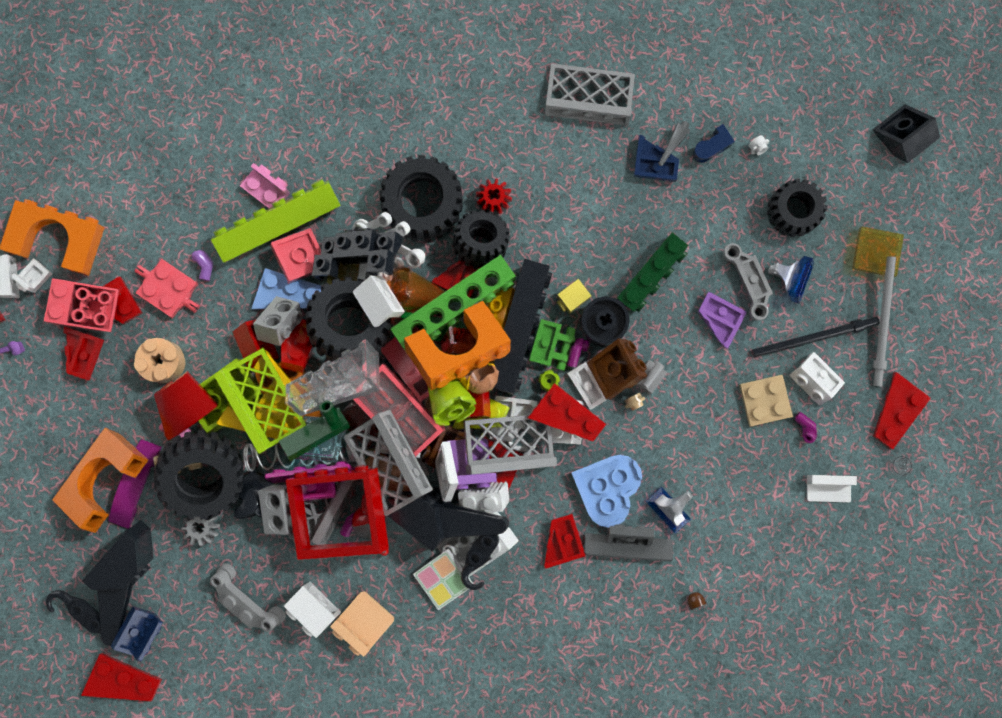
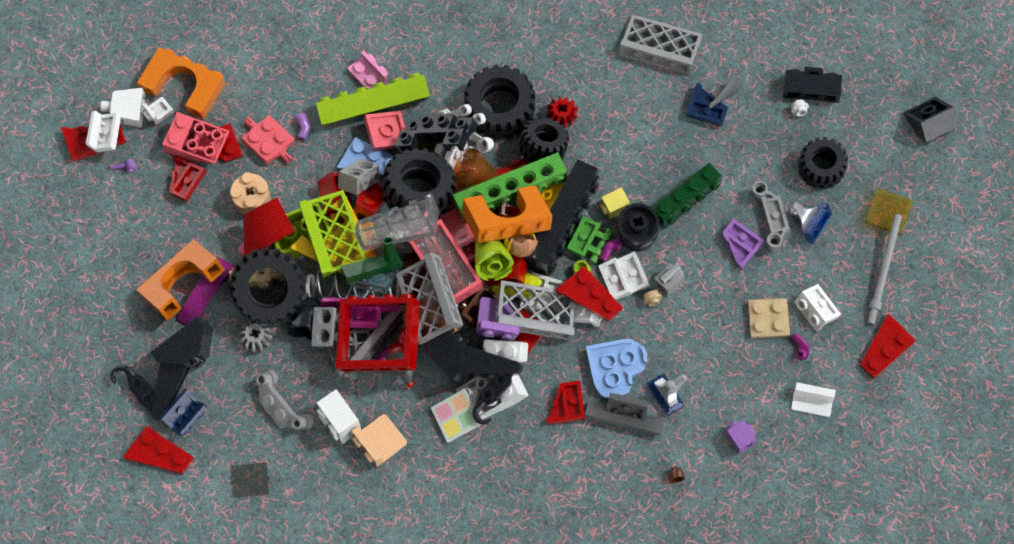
camera: 15 degrees right, 15 degrees down
(229, 692) = (250, 480): none -> clear smoke piece
(377, 300) = (447, 168): white panel -> none
(446, 471) = (477, 316): white tile -> none
(617, 368) = (641, 264): reddish brown plate -> none
(708, 149) = (761, 102): dark blue leg -> none
(759, 117) = (812, 85): none -> black piece
(760, 545) = (741, 436): none -> medium lavender brick
(855, 326) = (860, 270): black bar -> none

